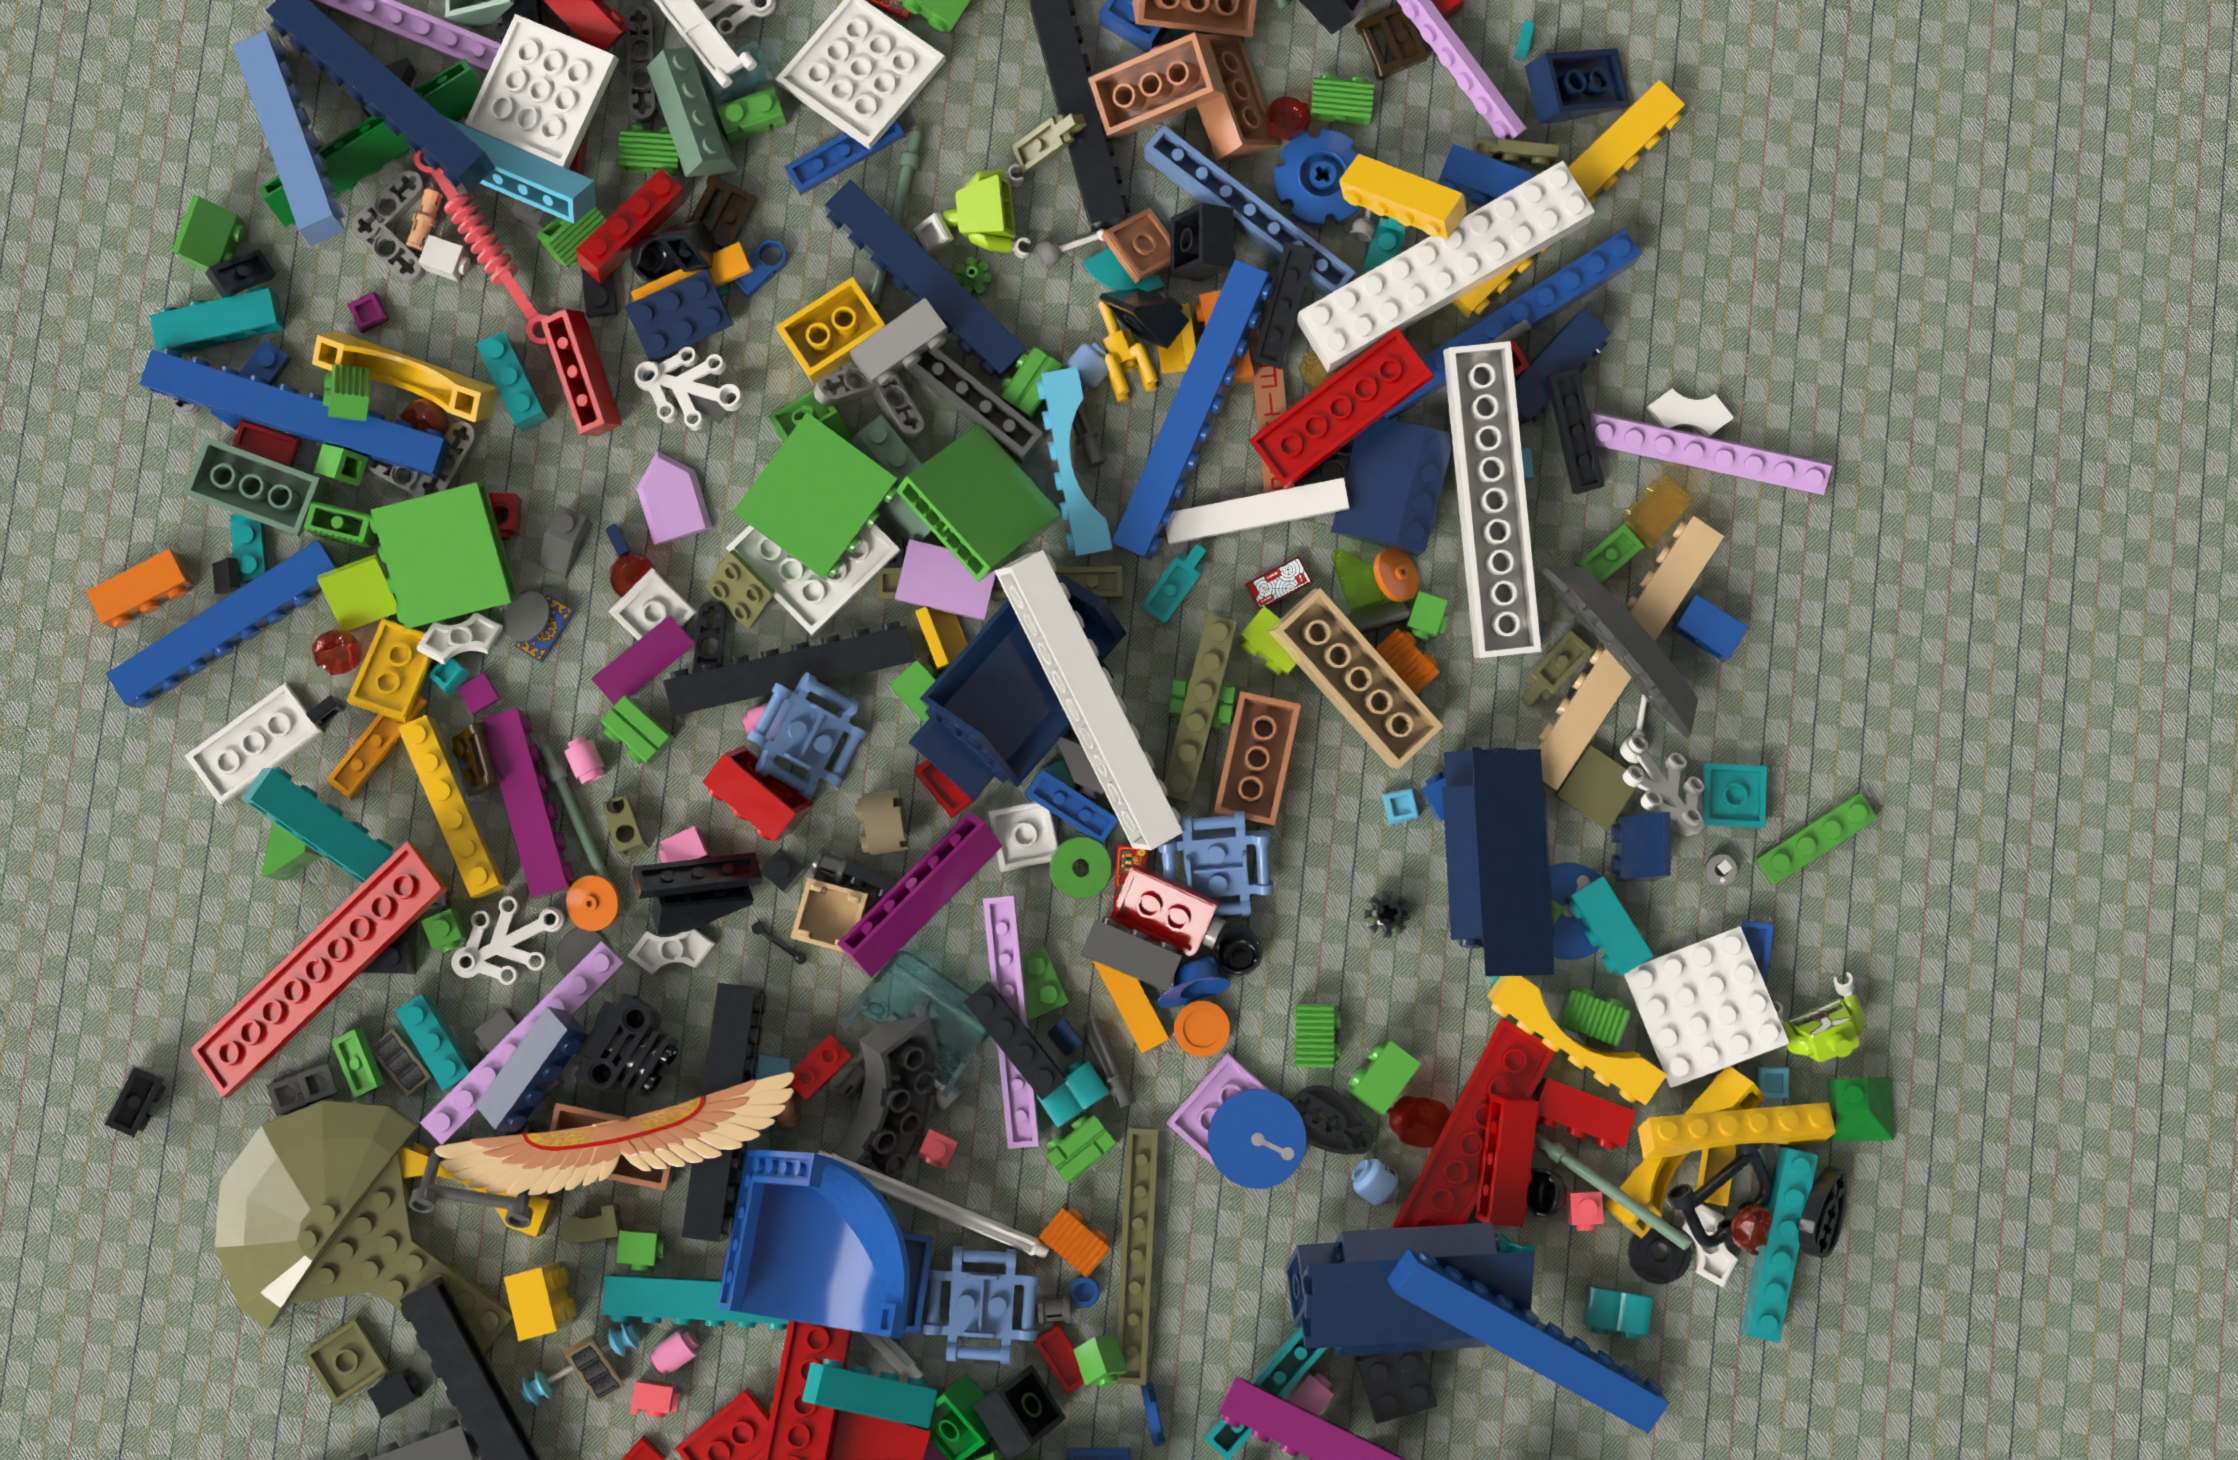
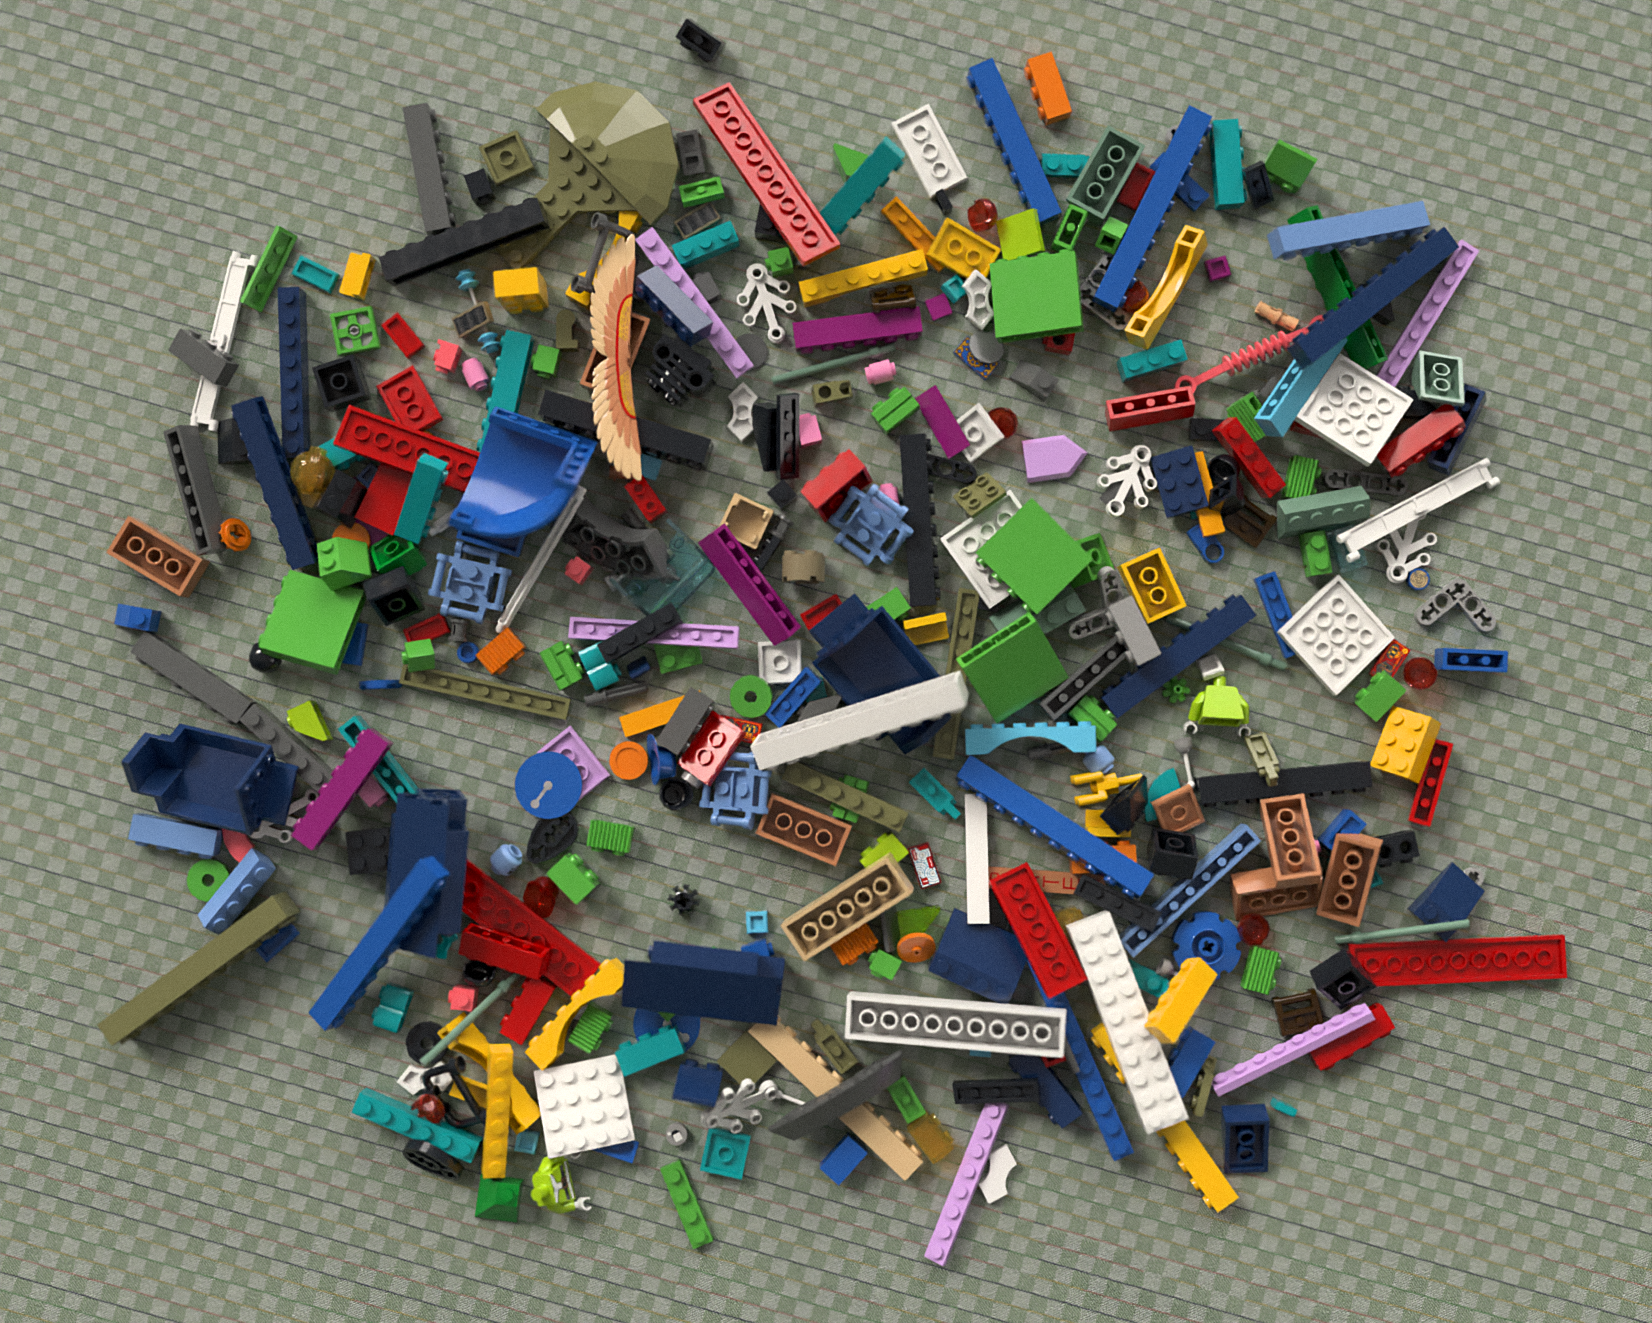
camera: 100 degrees right, 5 degrees up
(226, 575) = (1047, 147): black tile -> none
(347, 392) = (1159, 246): bright green brick -> none
(381, 230) = (1274, 285): light grey beam -> none
(444, 258) = (1246, 326): white brick -> none
(593, 902) = (782, 364): orange piece -> none
(618, 540) = (1028, 417): dark blue tile -> none
(758, 928) = (746, 473): black hinge -> none
(940, 582) = (962, 632): lavender tile -> none

